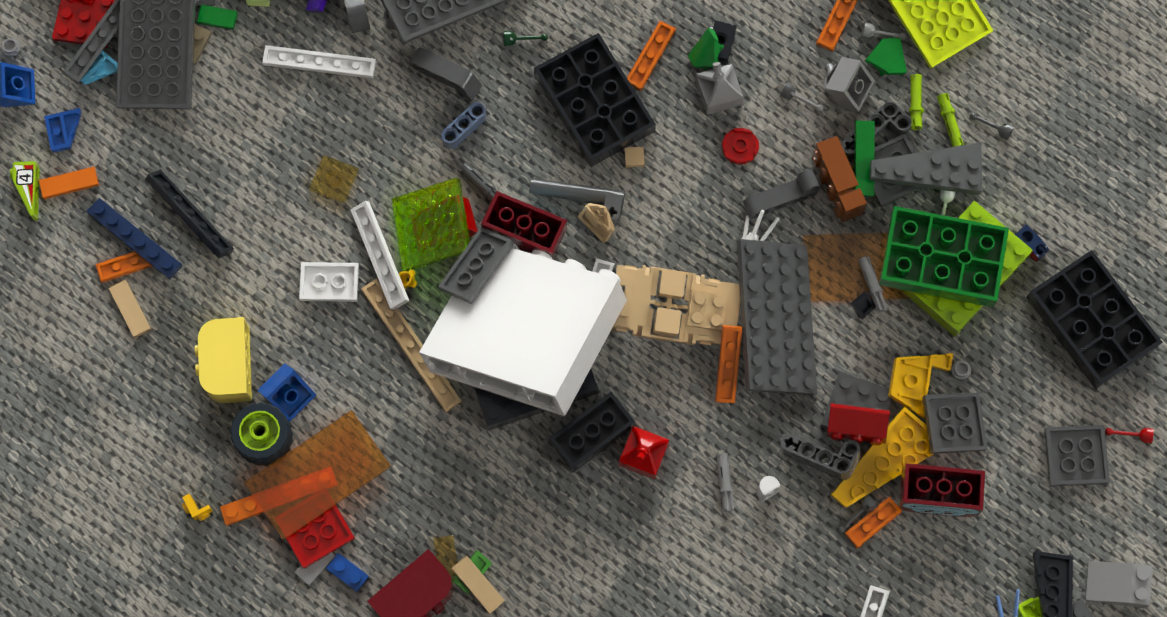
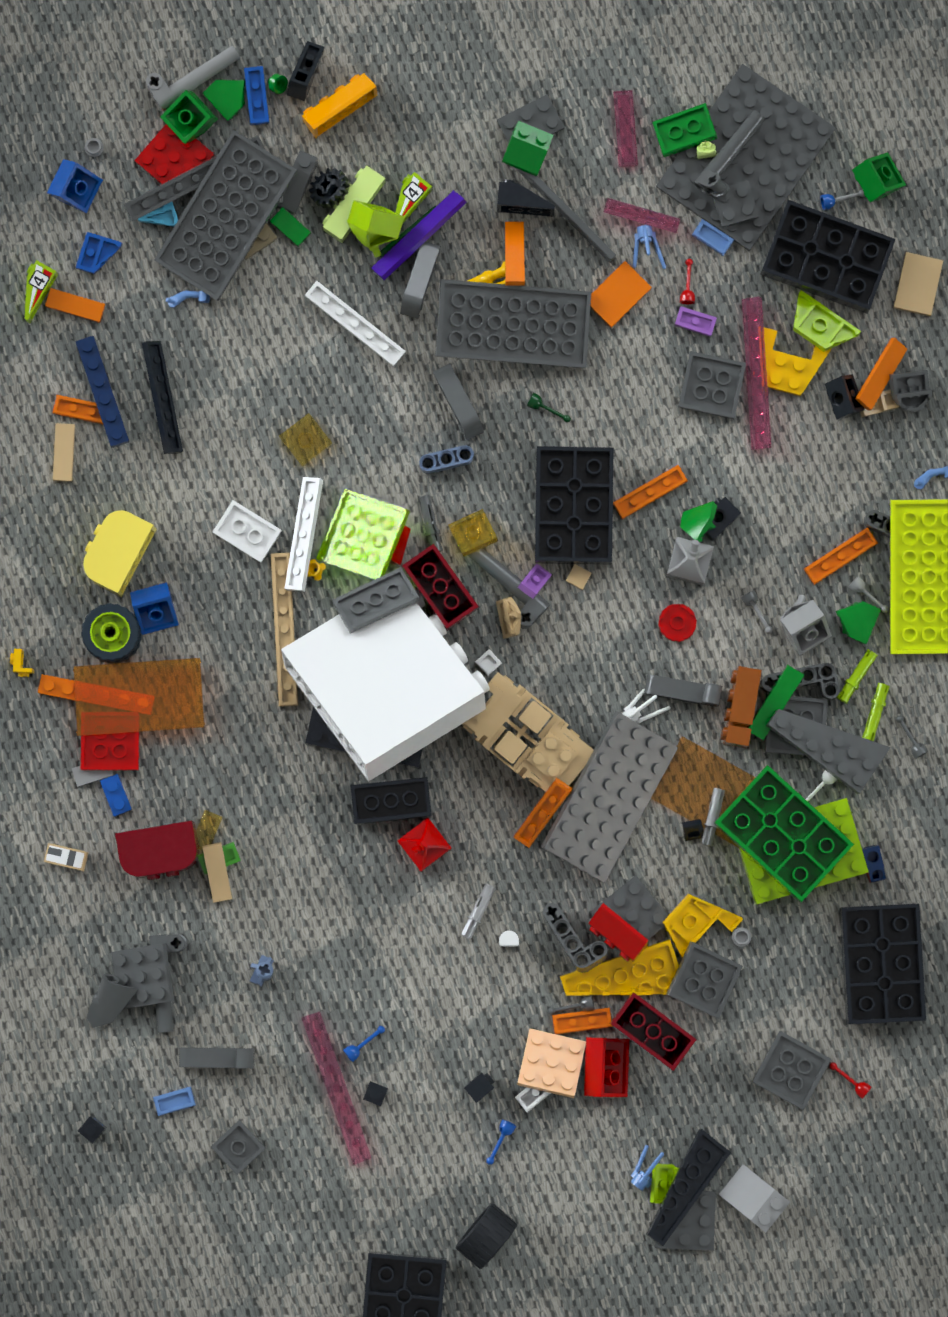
camera: 30 degrees right, 10 degrees up
(155, 127) = (175, 300): none -> medium blue piece
(523, 171) = (473, 532): none -> clear yellow tile
(600, 179) = (534, 581): none -> medium lavender plate
(871, 573) = (551, 1063): none -> light nougat plate
(919, 548) = (606, 1067): none -> red slope

